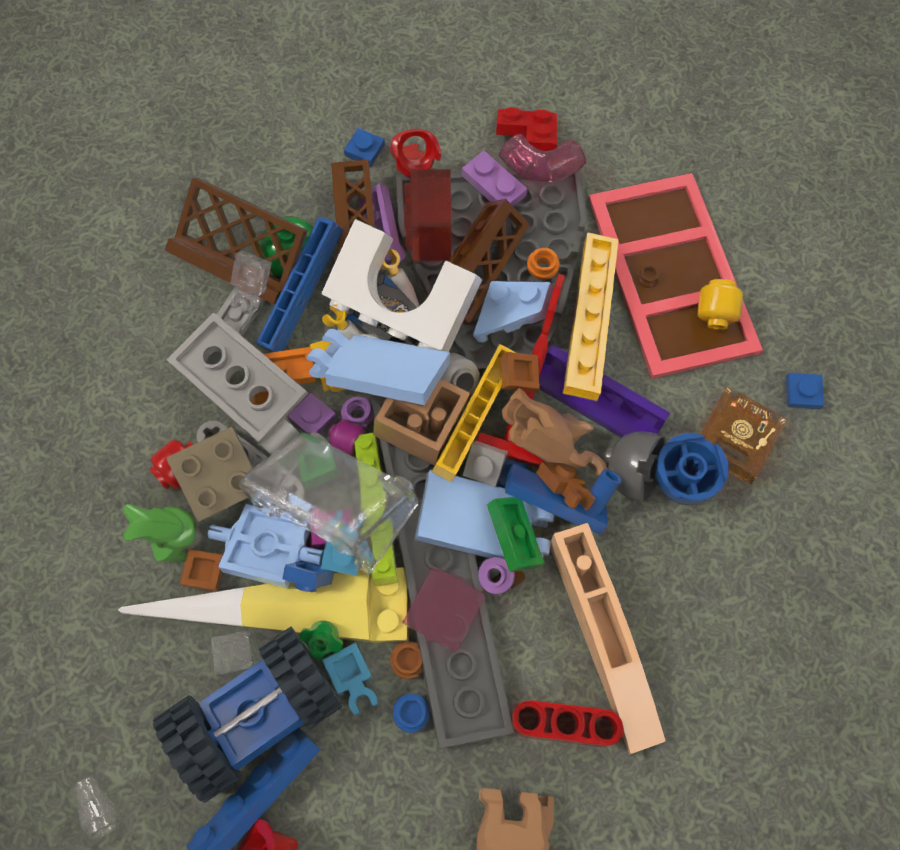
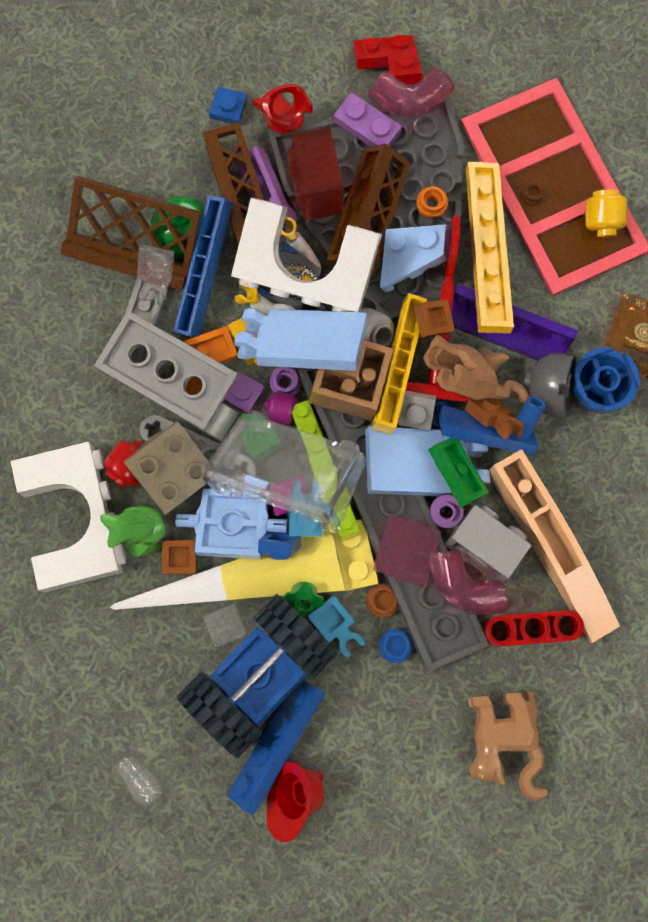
camera: 15 degrees left, 10 degrees up
(104, 554) = (78, 470): none -> white arch
(492, 662) = (461, 590): none -> clear pink cylinder
(532, 617) = (488, 543): none -> light grey brick

